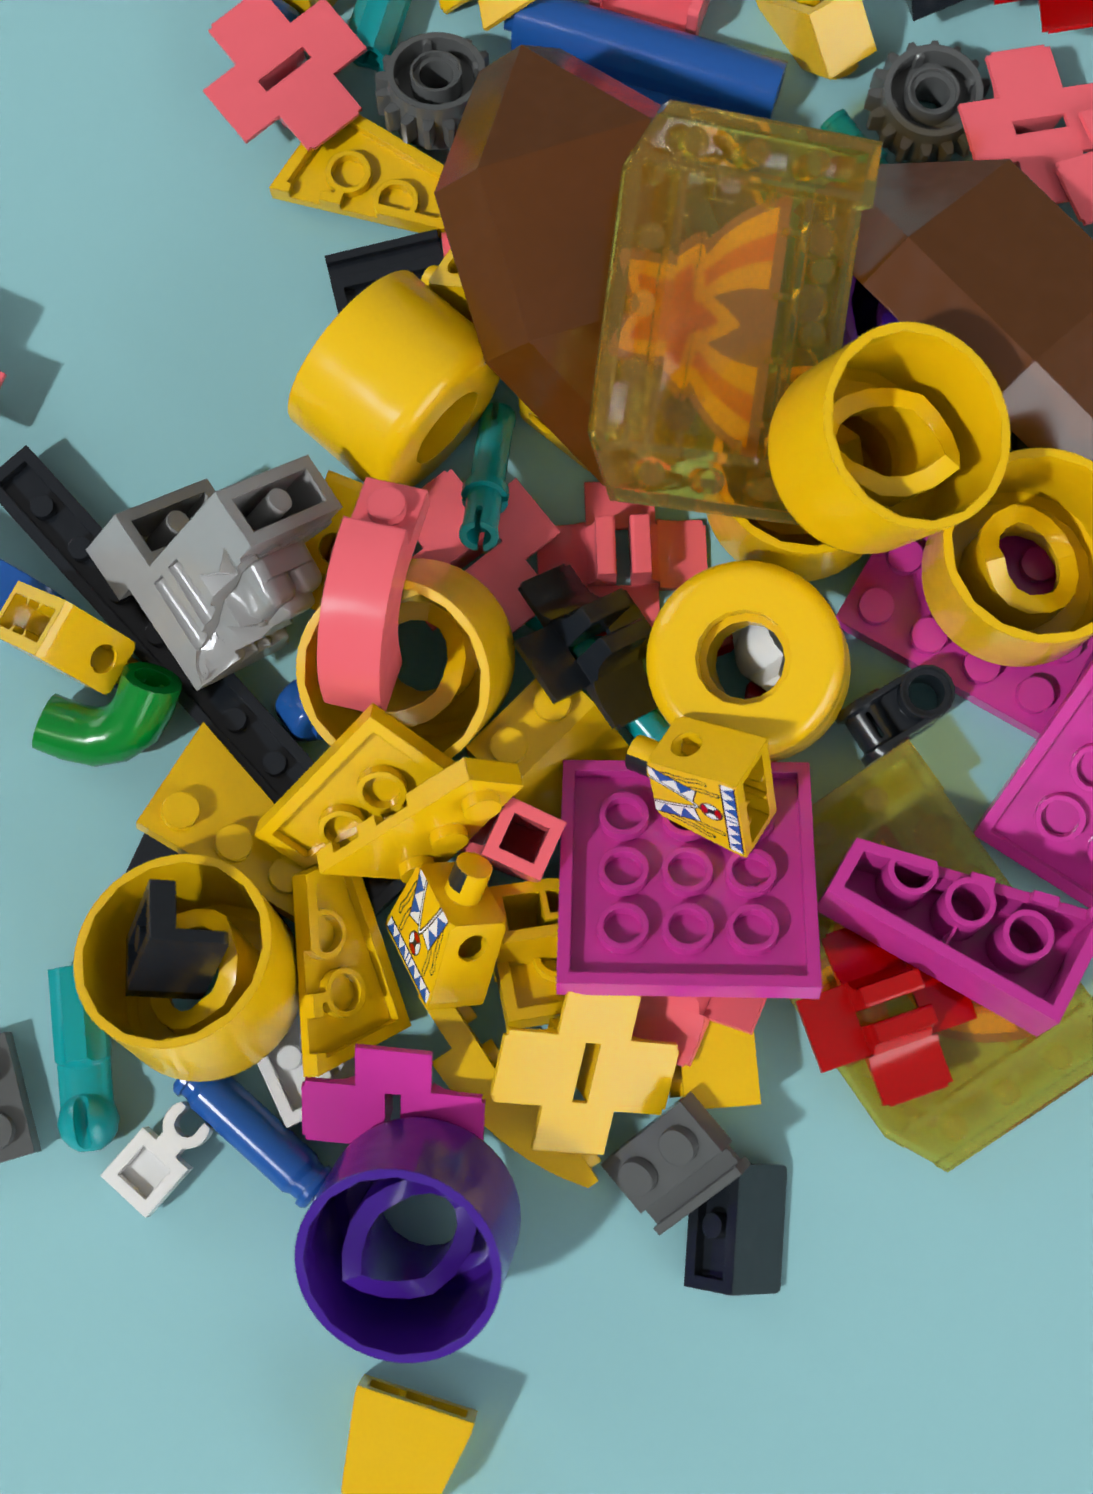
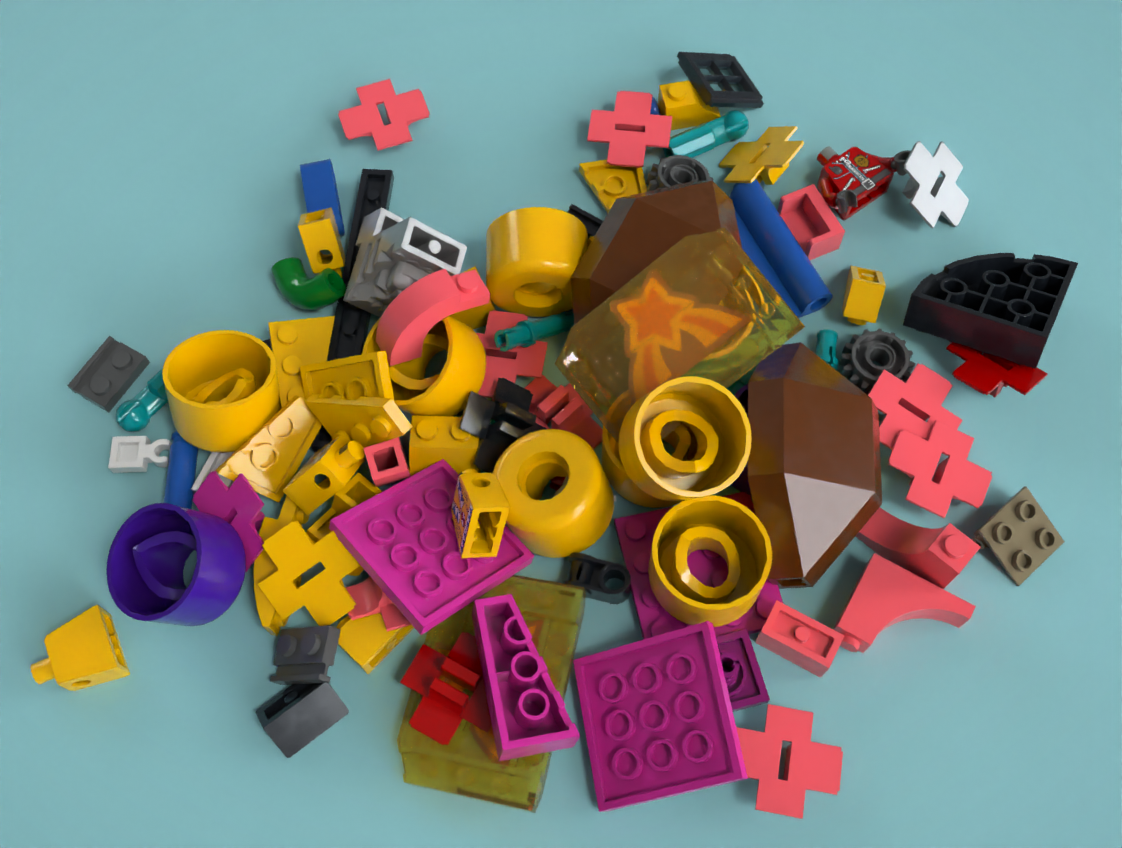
camera: 45 degrees right, 15 degrees down
(169, 959) = (214, 371): black panel -> none

